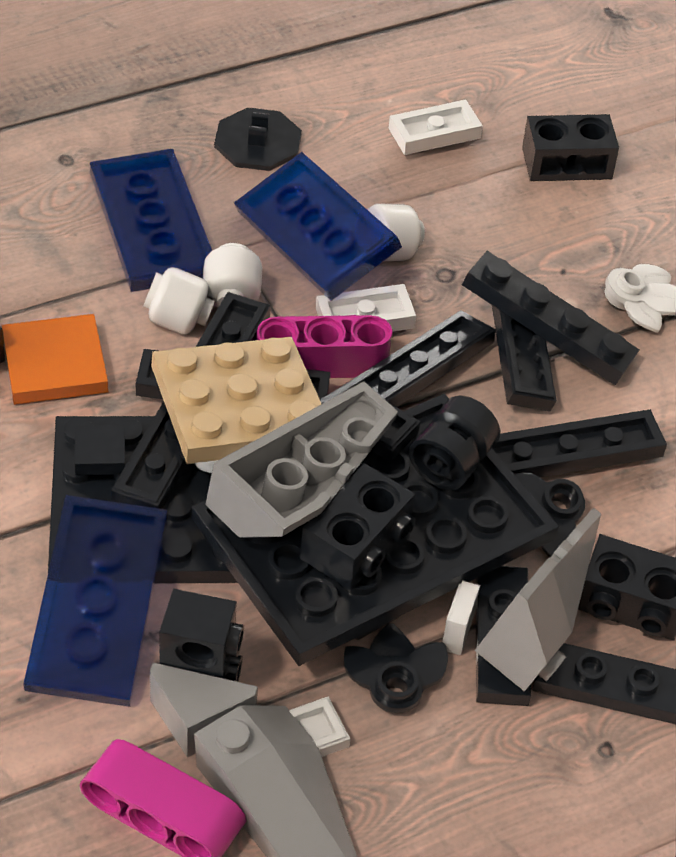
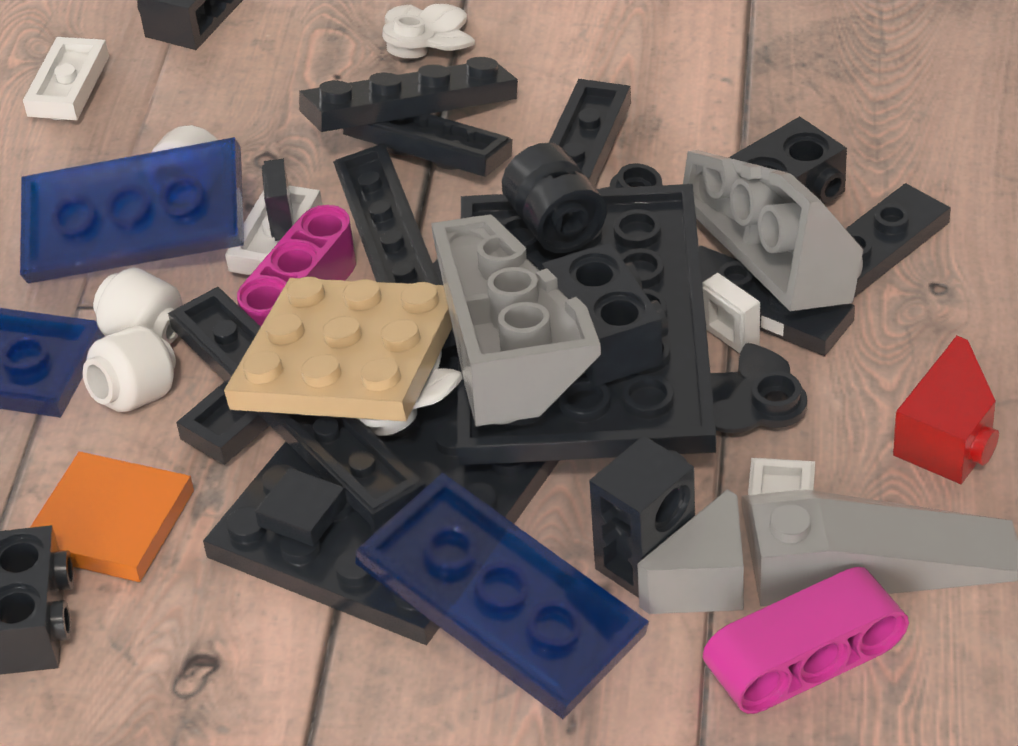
camera: 50 degrees left, 5 degrees down
(372, 292) = (277, 197): none -> black tile
(450, 805) = (948, 417): none -> red slope

